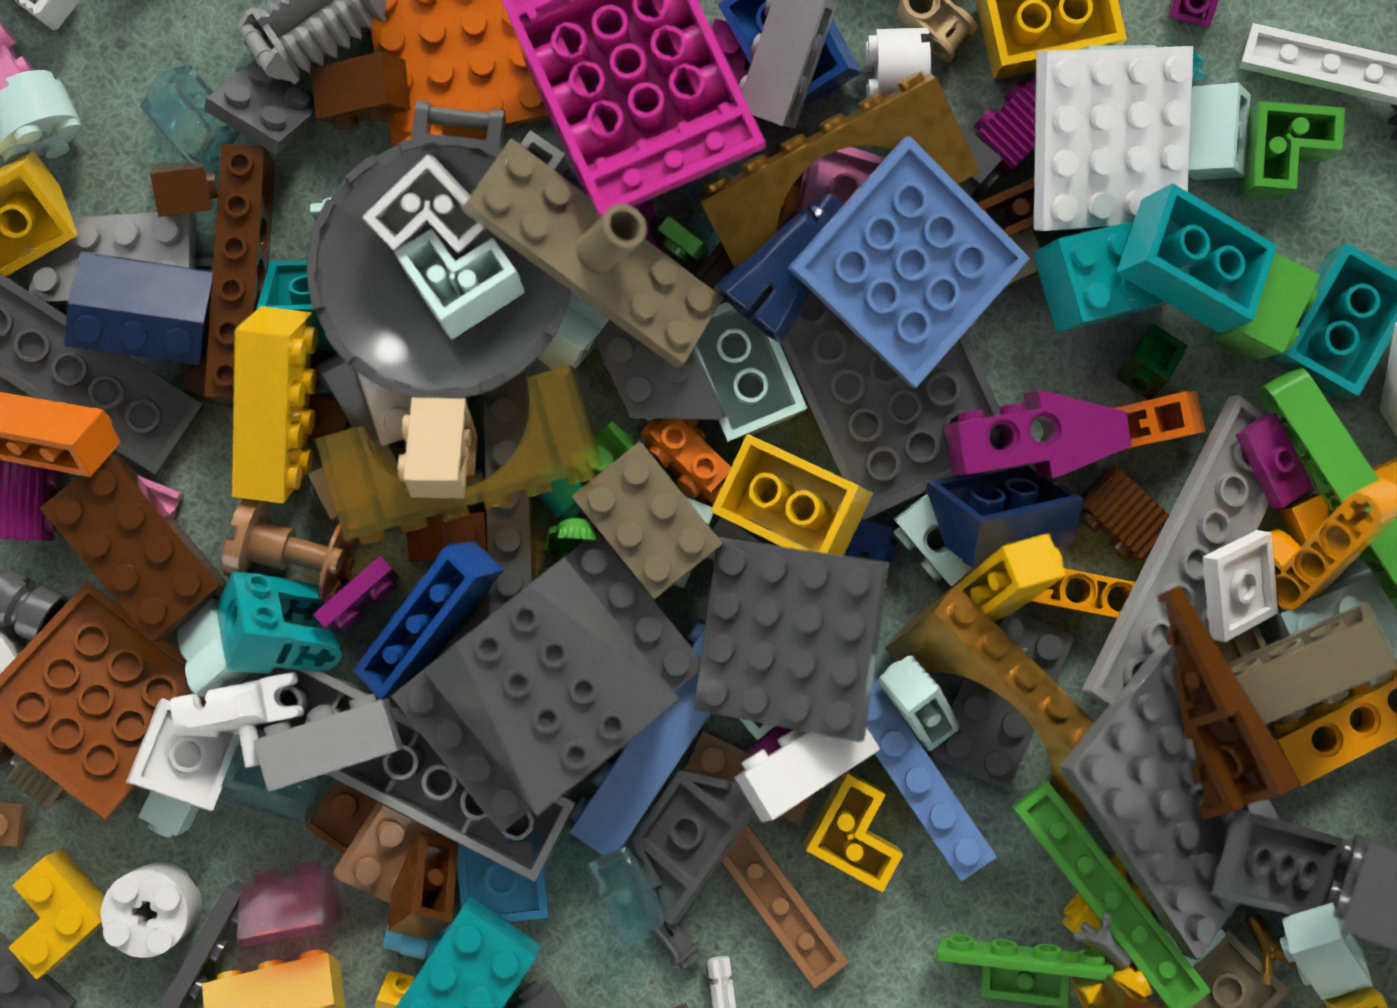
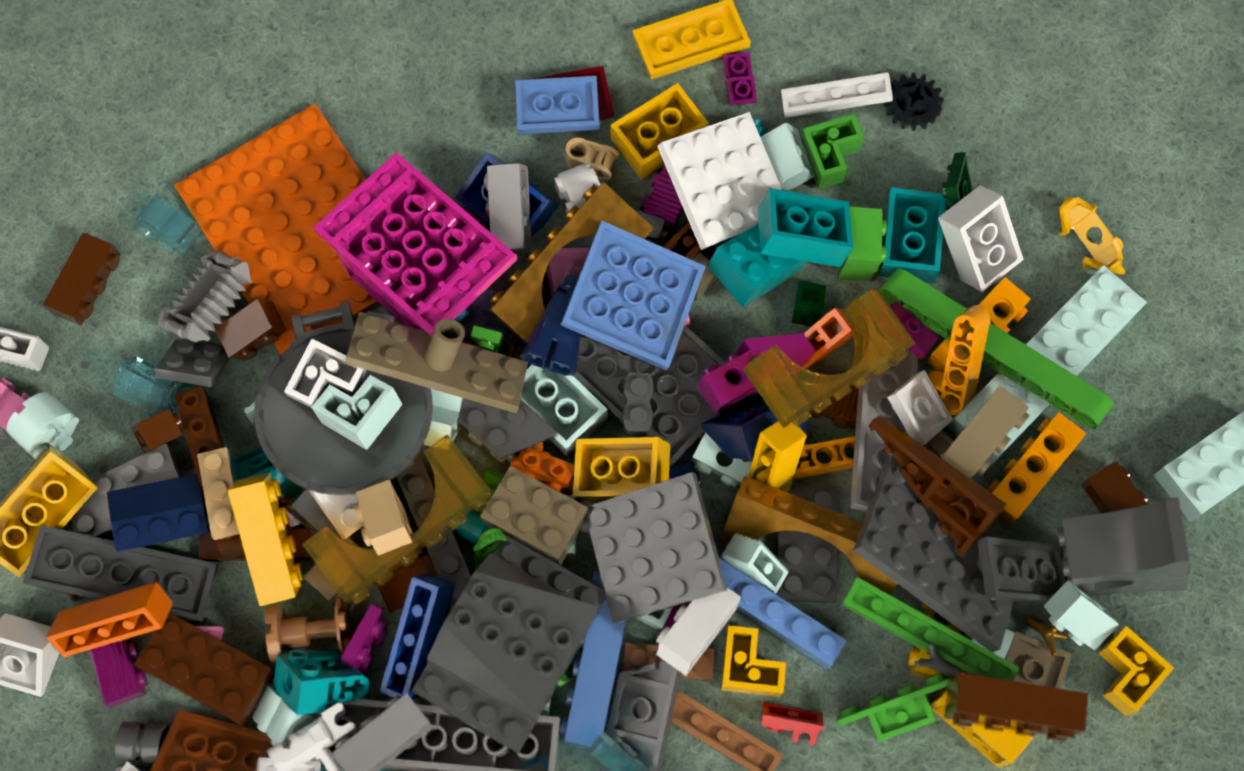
camera: 25 degrees left, 15 degrees down
(233, 300) = (216, 480): none -> tan plate
(855, 410) = (637, 411): none -> dark grey brick
(879, 923) = (787, 718): none -> red plate
(1078, 509) = (795, 392): none -> clear yellow arch

